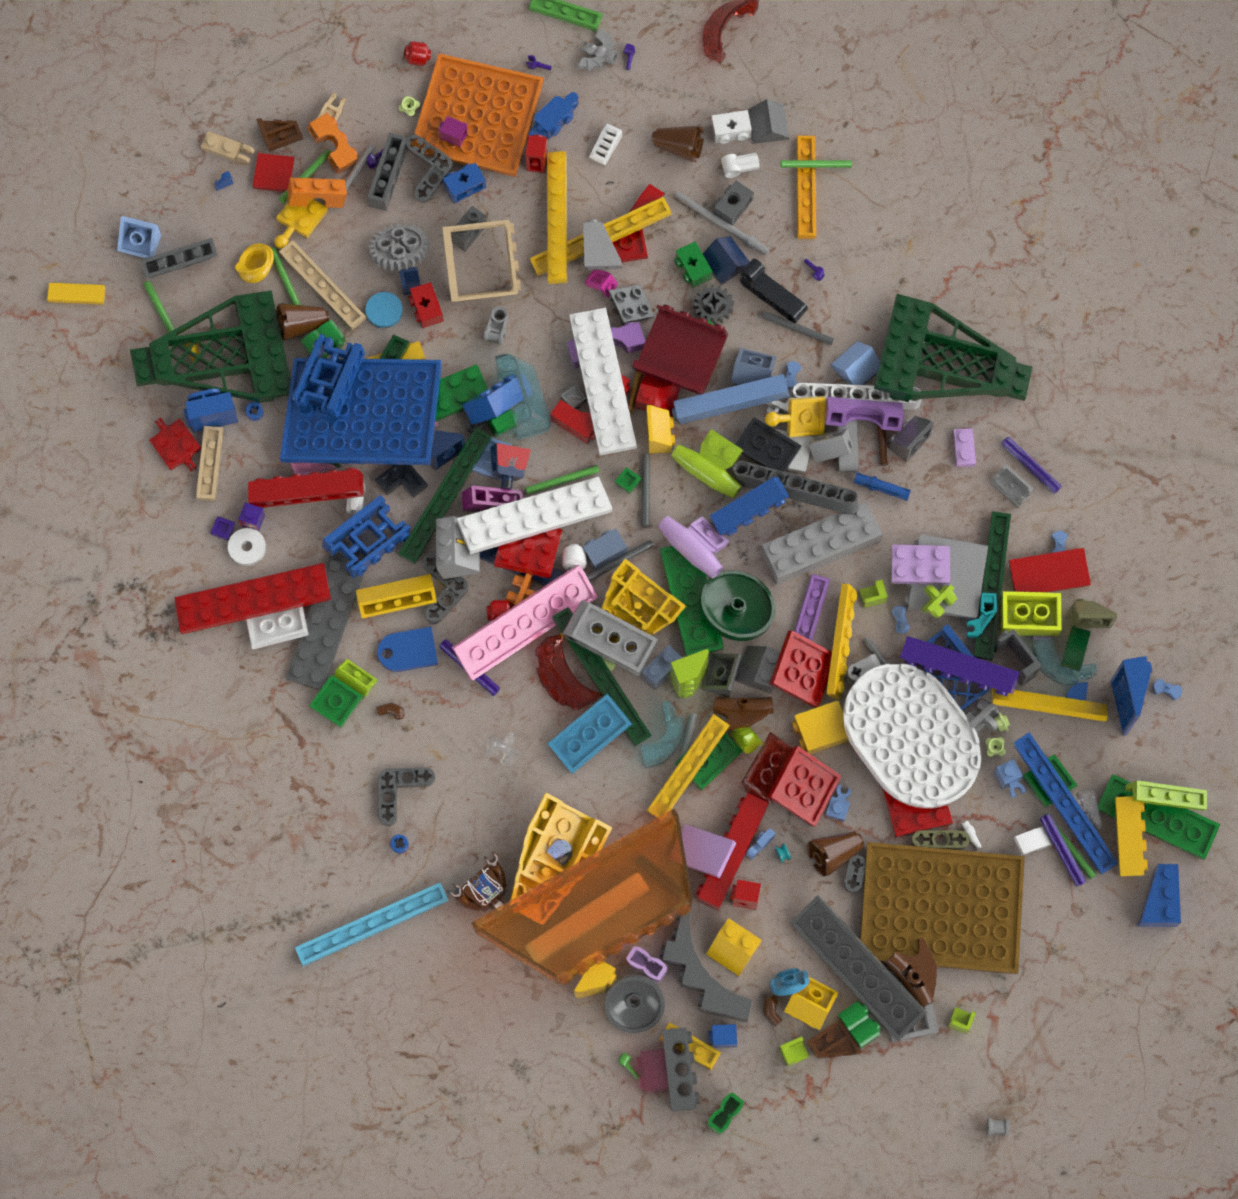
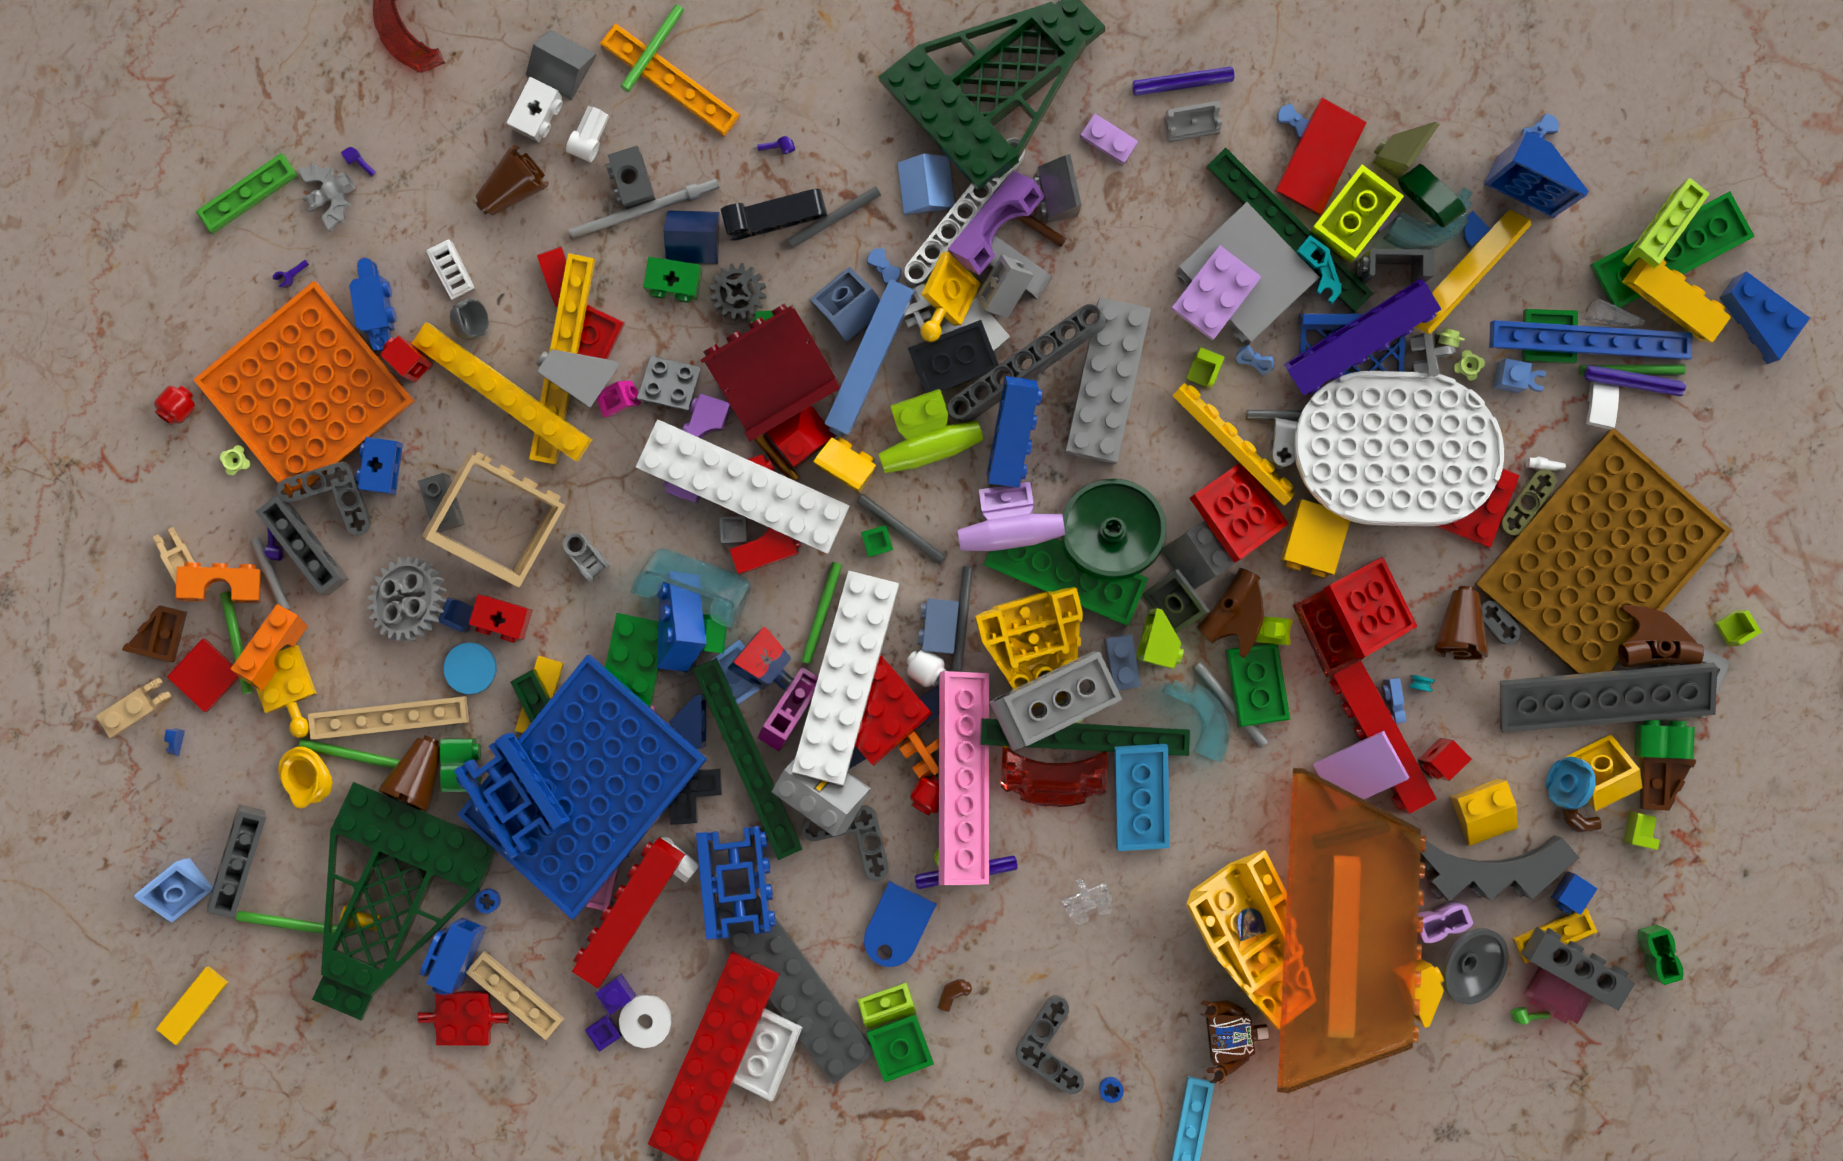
camera: 50 degrees left, 15 degrees up
(396, 596) = (827, 898): yellow brick -> none
(453, 131) = (307, 435): magenta brick -> none
(585, 172) = (469, 319): none -> dark grey hair
(688, 766) = (1259, 718): yellow tile -> none
(812, 606) = (1172, 449): medium lavender tile -> none
(838, 806) = (1412, 584): medium blue plate -> none
(882, 486) = (1092, 262): blue pin -> none
(944, 594) = (1270, 304): lime hips -> none

